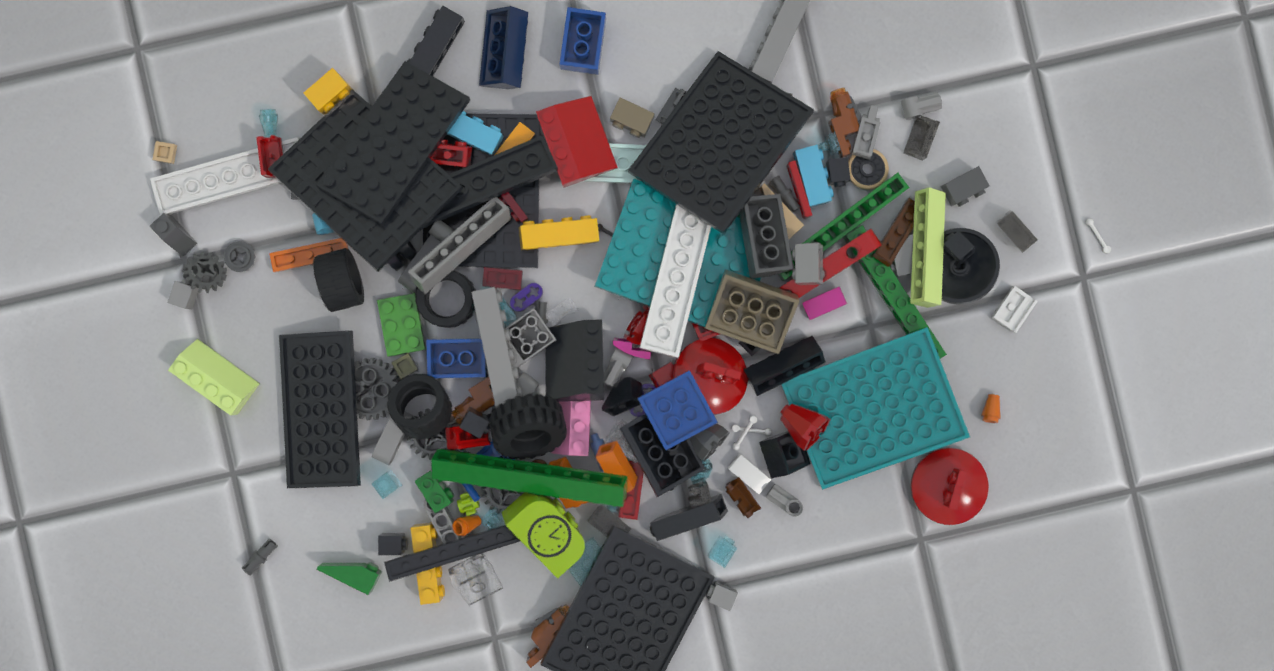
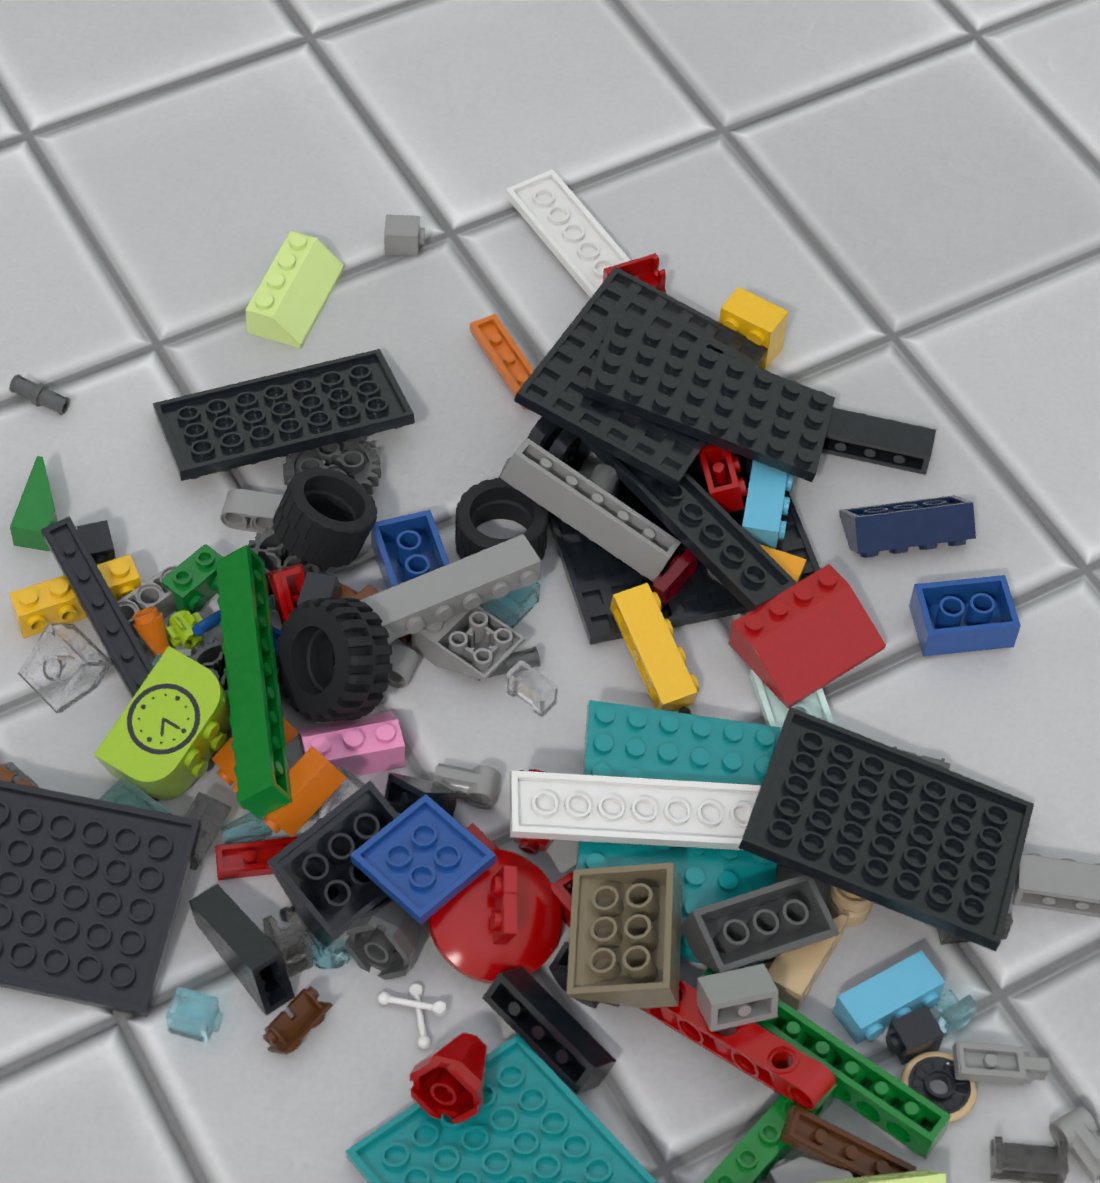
camera: 75 degrees right, 35 degrees down
(164, 152) = (594, 179): tan plate -> none
(173, 234) = (485, 207): dark grey slope -> none
(205, 275) = (442, 248): dark grey gear -> none
(231, 254) = (478, 277): dark grey gear -> none
(269, 121) = (684, 278): clear light blue cone -> none
(338, 280) = (481, 386): black tyre -> none
(386, 484) = (189, 519): clear light blue brick -> none
(401, 325) = (436, 487): bright green plate -> none
(405, 365) = (386, 504): olive plate -> none
(502, 278) = (557, 600): dark red plate -> none
(523, 293) = (540, 637): dark purple beam -> none
(575, 362) = (459, 719): black slope -> none
(627, 347) = (501, 797): dark pink slope -> none
(631, 117) = (875, 708): dark tan brick -> none
(721, 595) = (113, 1034): light grey brick -> none
(749, 474) = (341, 1027): white slope -> none
(783, 455) = (384, 1070): black slope -> none
(783, 500) = (309, 1095): light grey piece -> none
(785, 193) = (842, 964): dark grey pin -> none
(799, 189) = (826, 999): red tile -> none
(824, 303) = (680, 1073): dark pink slope -> none
(846, 119) = (1004, 1023): dark orange plate -> none

